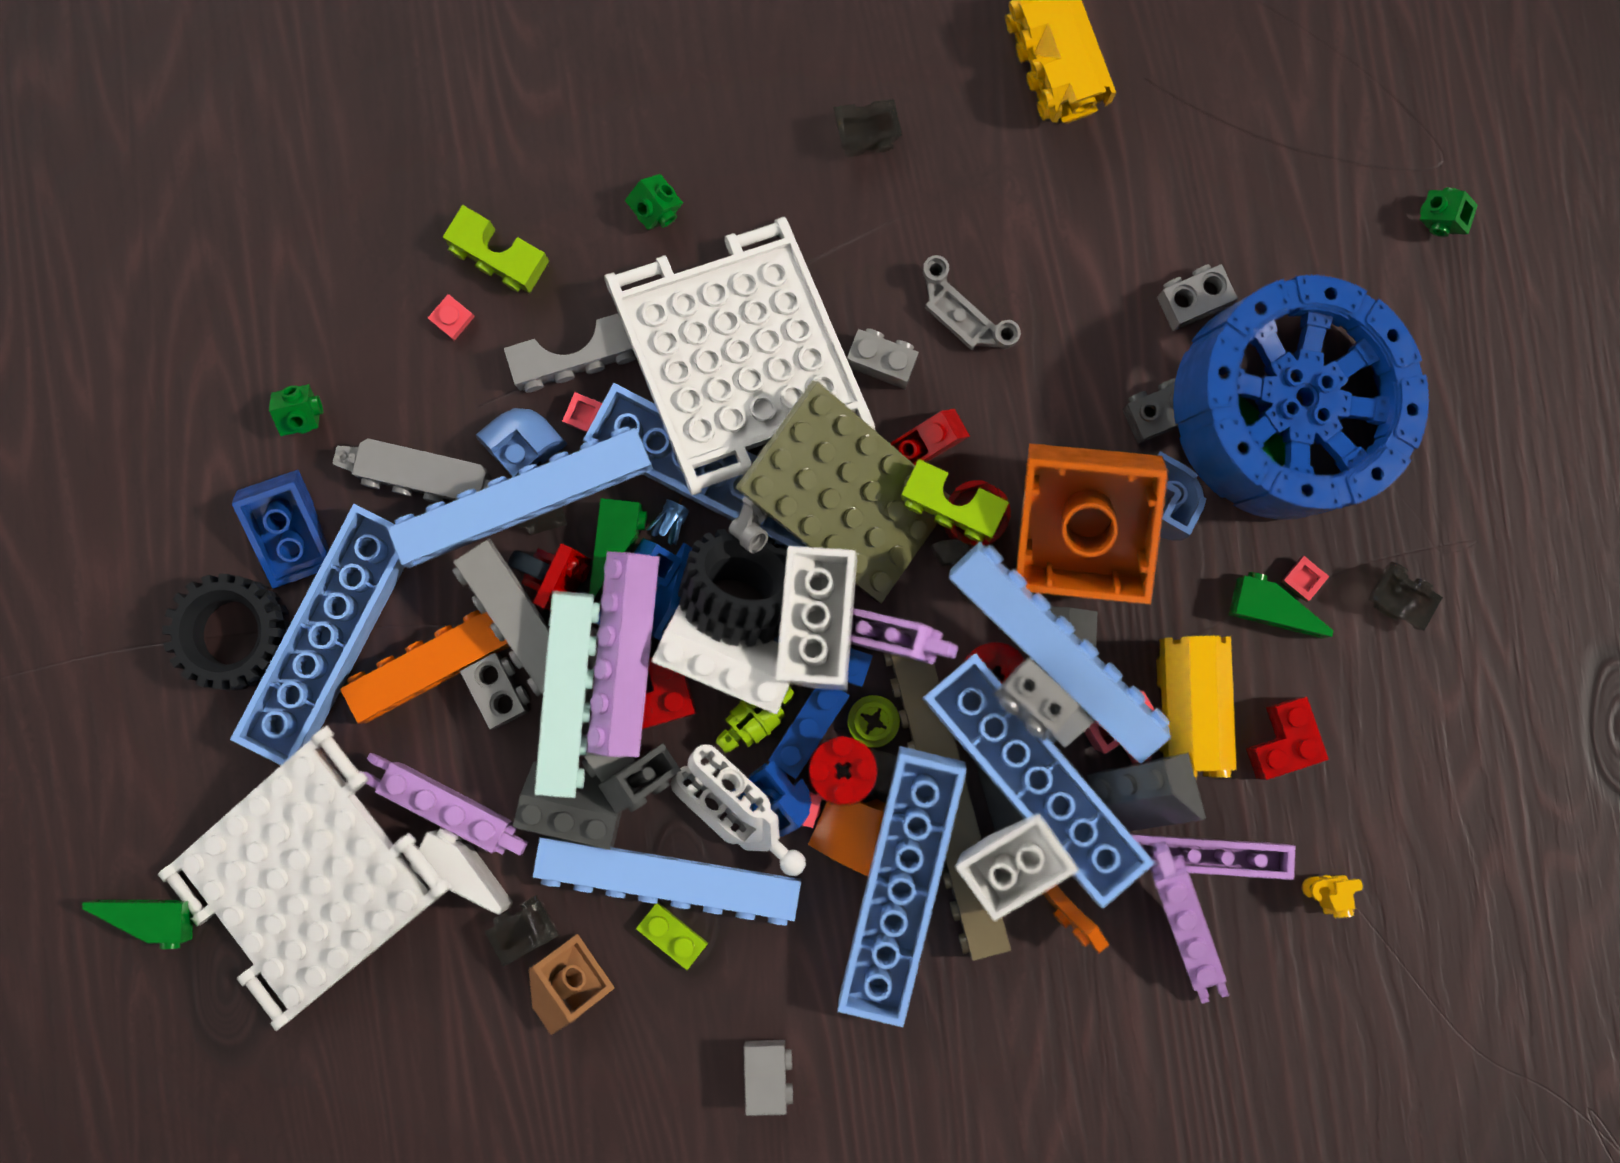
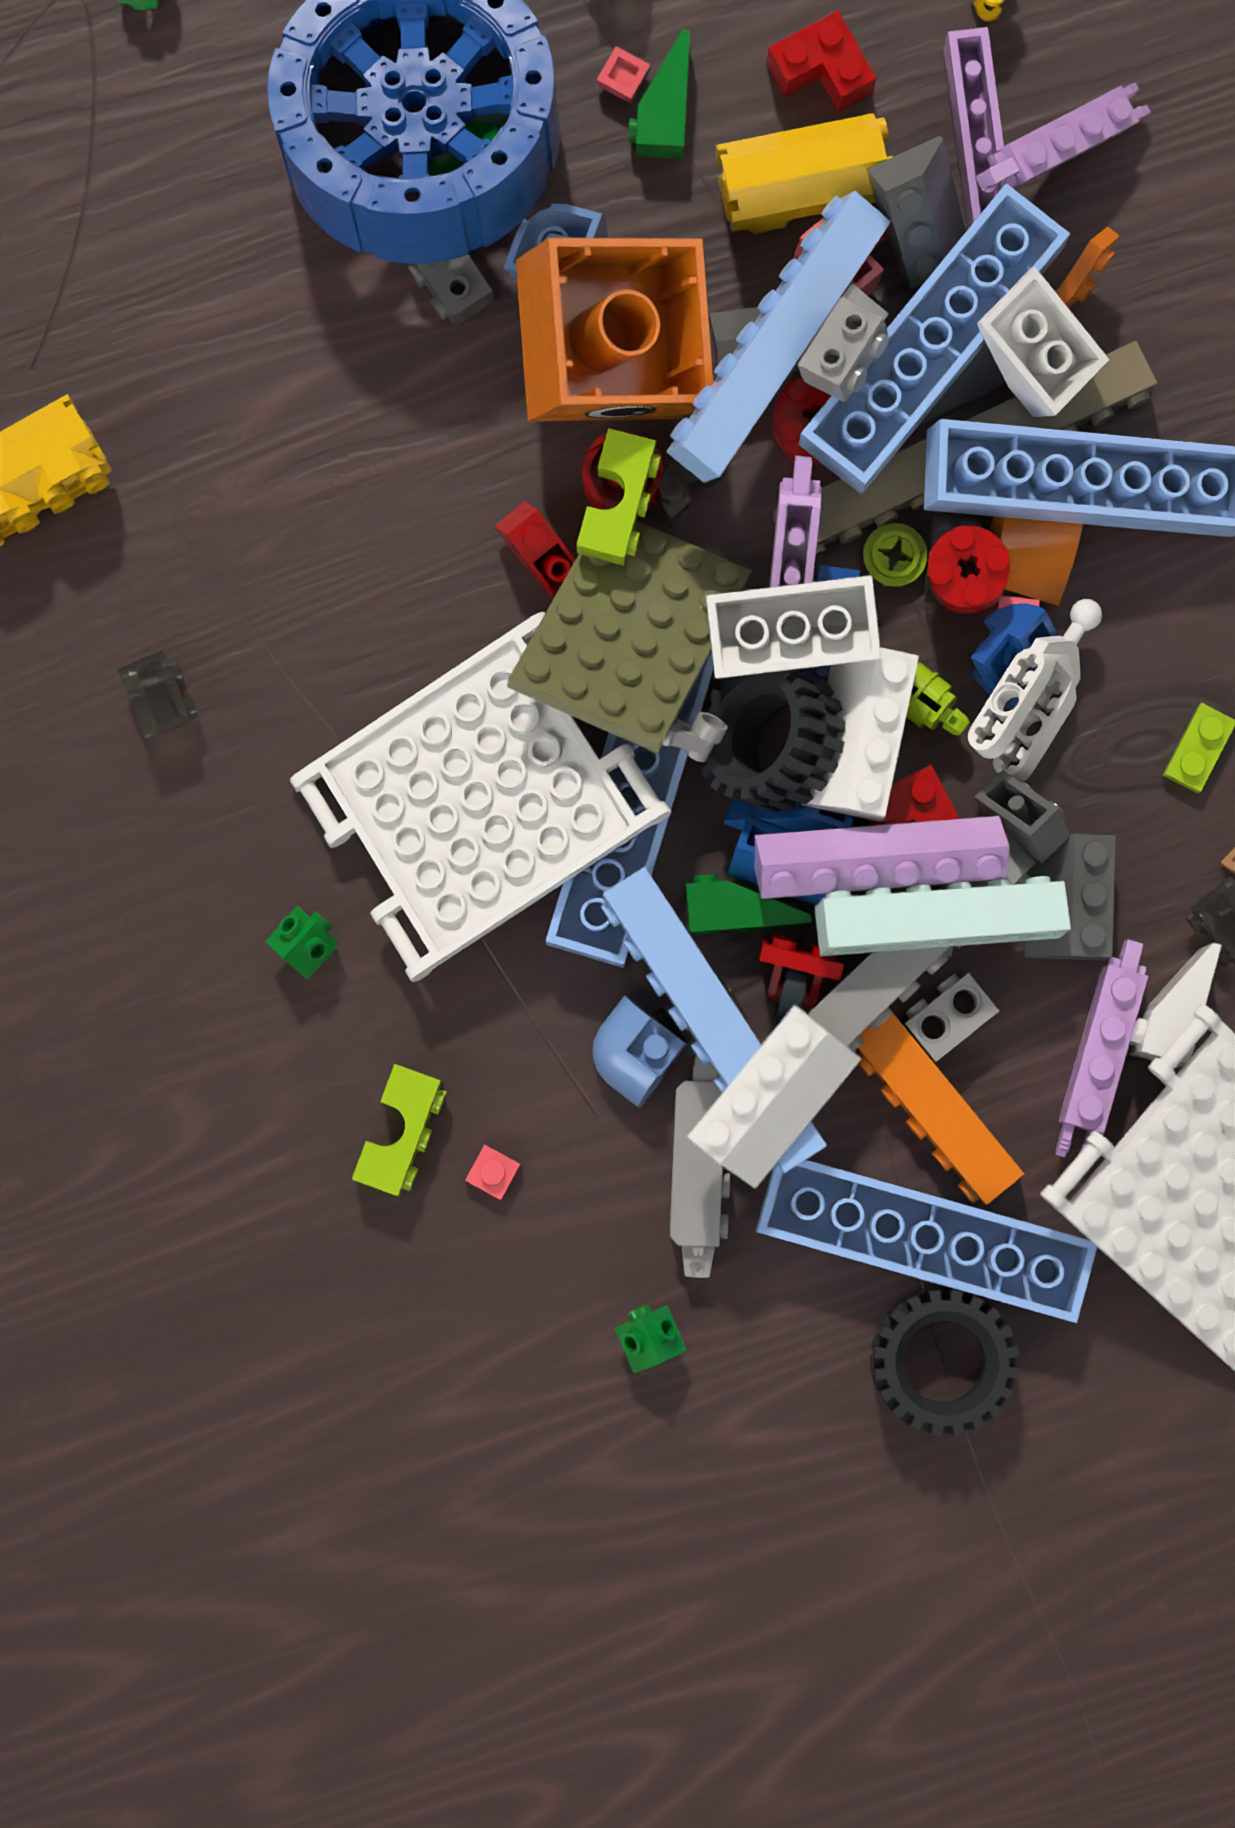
camera: 100 degrees left, 0 degrees up
(282, 527) = (800, 1323): blue slope -> none
(444, 528) = (774, 1097): none -> white slope
(534, 365) = (535, 1052): light grey arch -> none
(581, 412) = (585, 979): coral plate -> none
(667, 878) = (1133, 761): light blue brick -> none
(671, 516) = (692, 840): flat silver piece -> none
(808, 729) = (937, 633): blue arch -> none
(882, 358) = (449, 623): light grey brick -> none
(960, 315) = (375, 540): light grey plate -> none
(1199, 301) = (307, 255): light grey brick -> none

